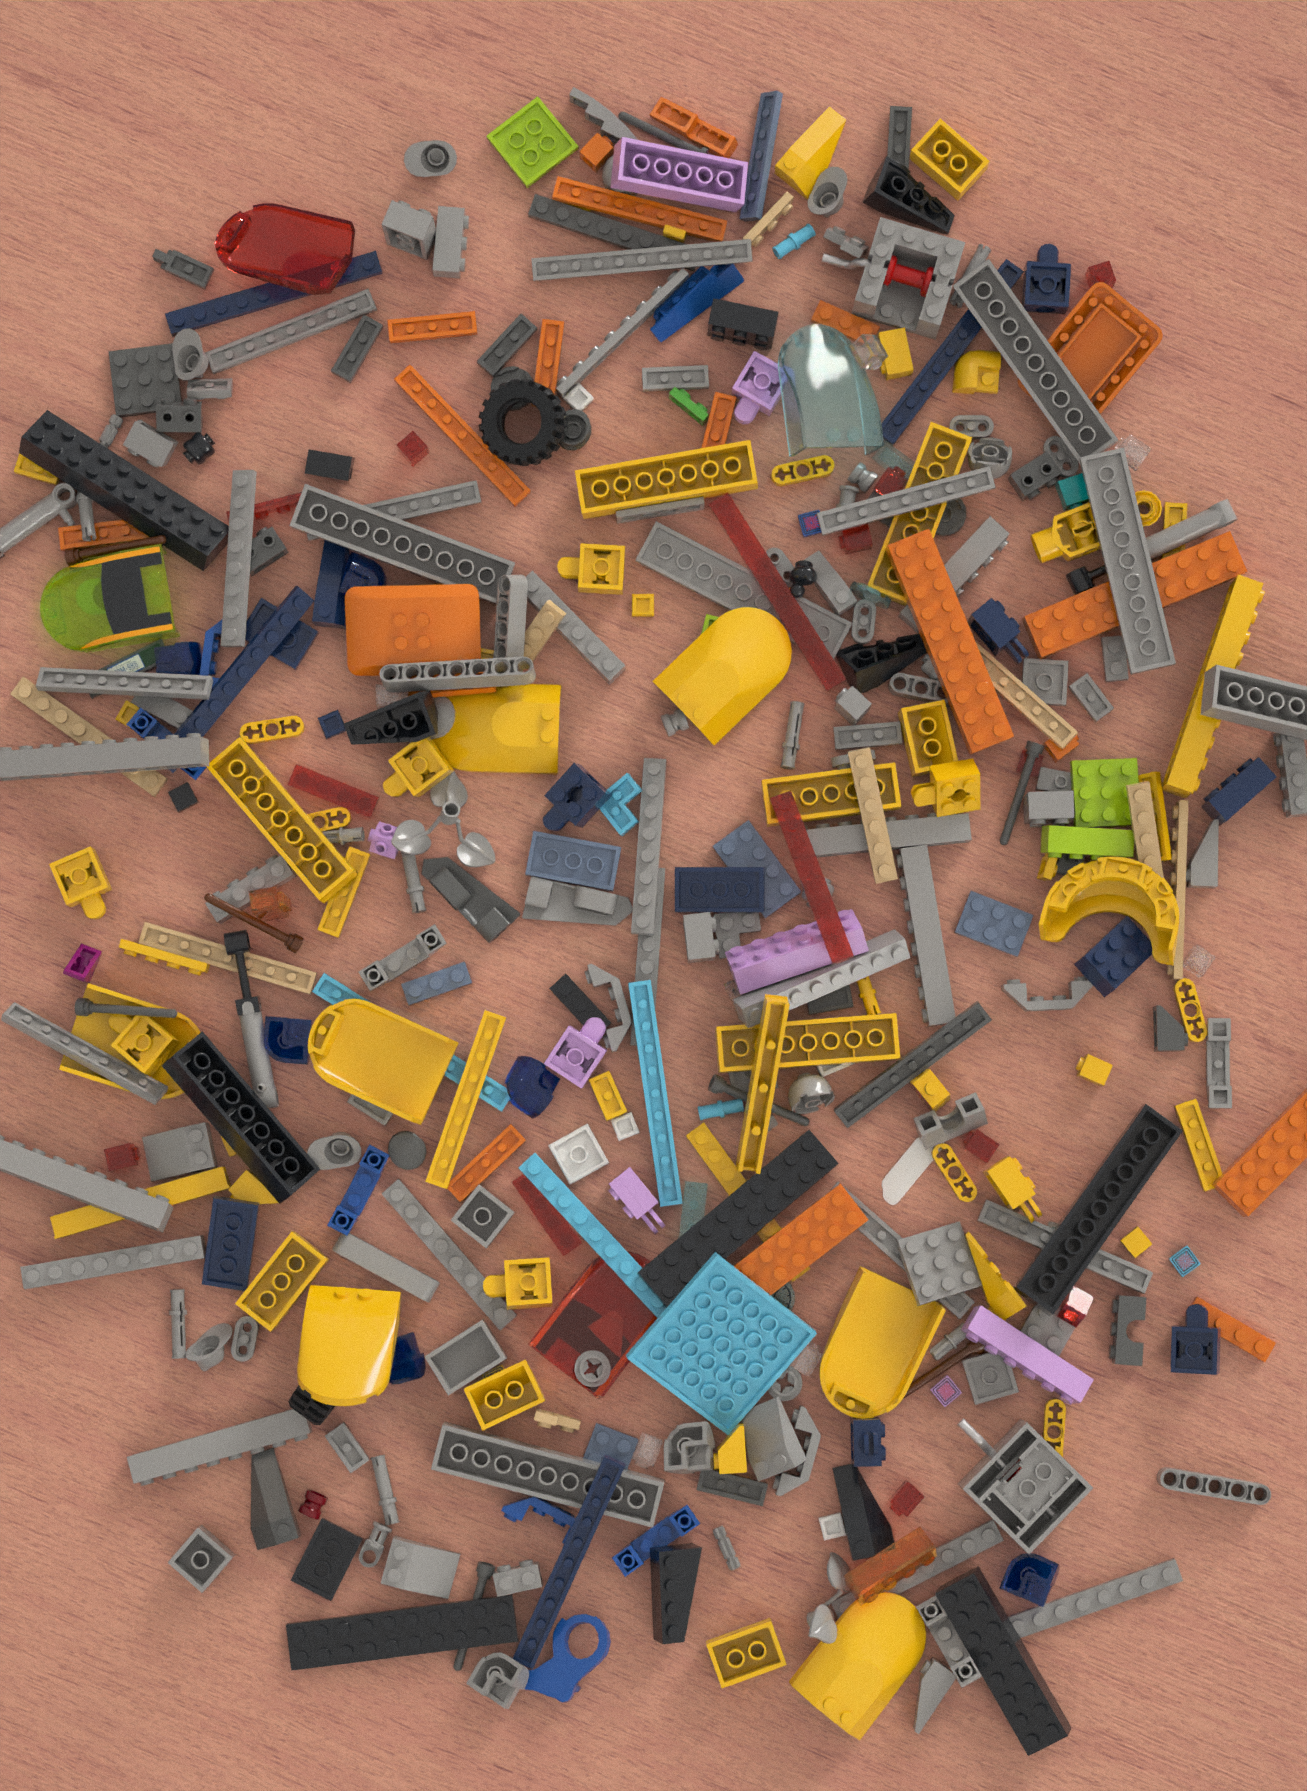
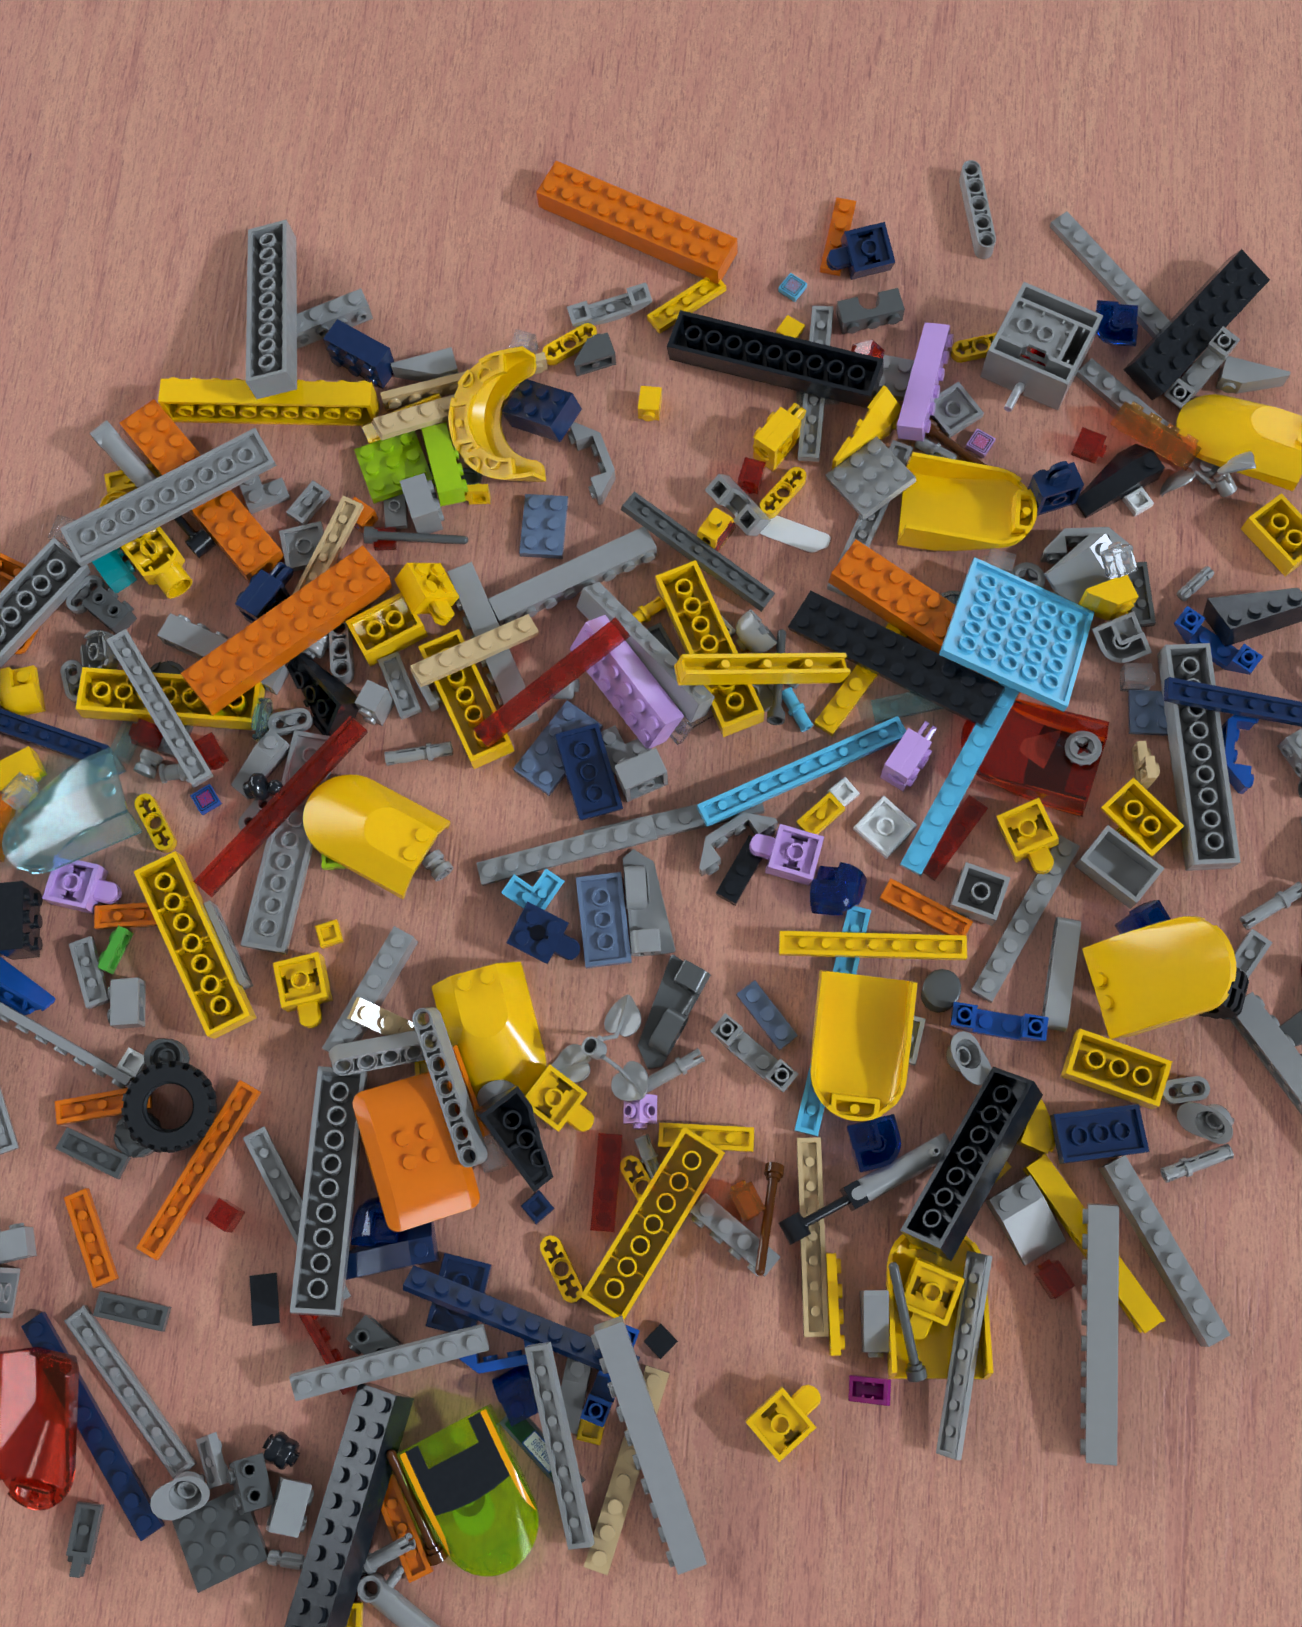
camera: 100 degrees left, 10 degrees down
(137, 986) = (874, 1322): none -> light grey slope
(634, 405) = (127, 1003): none -> light grey brick
(762, 1468) = (1118, 560): none -> clear brick

